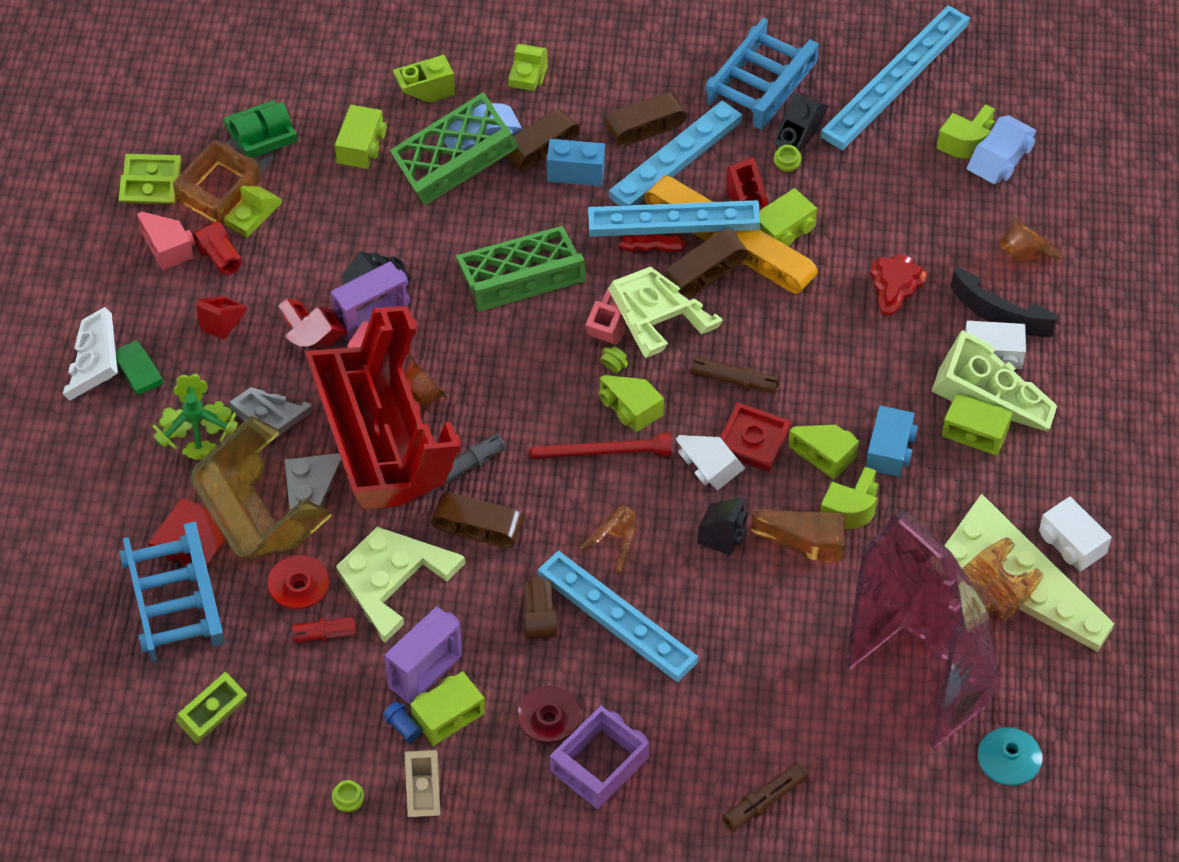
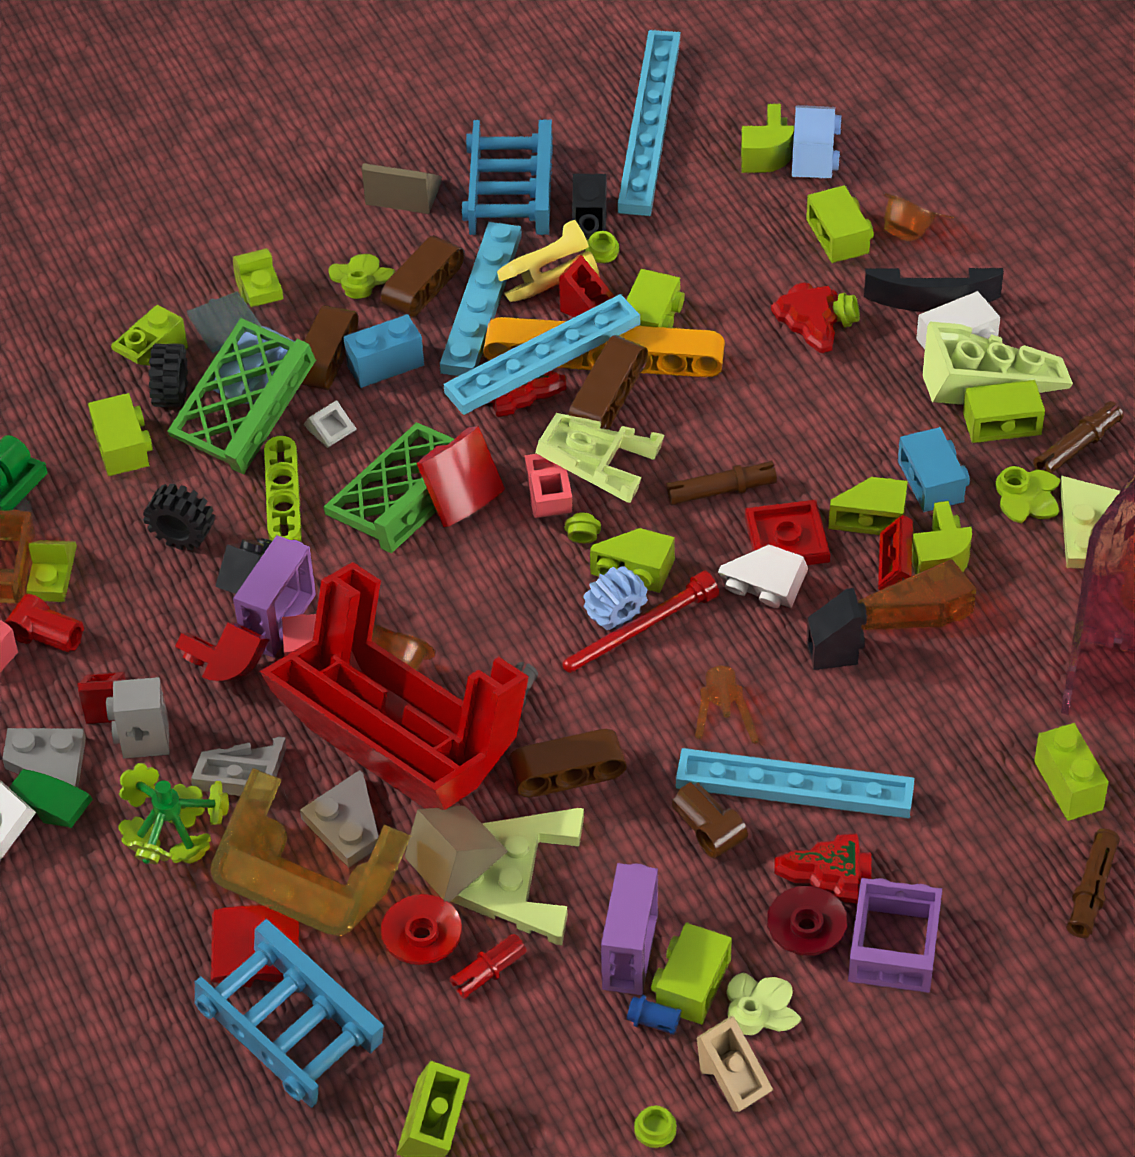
camera: 30 degrees left, 5 degrees down
(159, 338) = (46, 751): none -> light grey wing
(225, 343) = (139, 717): none -> light grey brick
(351, 215) = (179, 516): none -> black tyre
(356, 538) = (451, 849): none -> dark tan slope
(417, 109) = (168, 375): none -> black tyre
(436, 232) = (282, 492): none -> lime beam
(480, 751) = (761, 1004): none -> yellowish green plate
(494, 85) = (219, 317): none -> clear light blue piece
(504, 198) = (330, 424): none -> white slope
(553, 280) = (460, 476): none -> red slope
(592, 421) = (615, 598): none -> light blue gear
(594, 685) = (829, 865): none -> red rock
(604, 97) = (360, 275): none -> lime plate
(680, 44) = (399, 188): none -> dark tan slope
(758, 144) = (530, 264): none -> light yellow piece
(809, 710) = (1071, 771): none -> lime brick
(814, 488) = (895, 552): none -> red tile
(924, 291) = (846, 309): none -> lime plate
(947, 498) = (1027, 493): none -> lime plate
(970, 222) = (839, 224): none -> lime brick
(1029, 470) = (1089, 430): none -> reddish brown pin

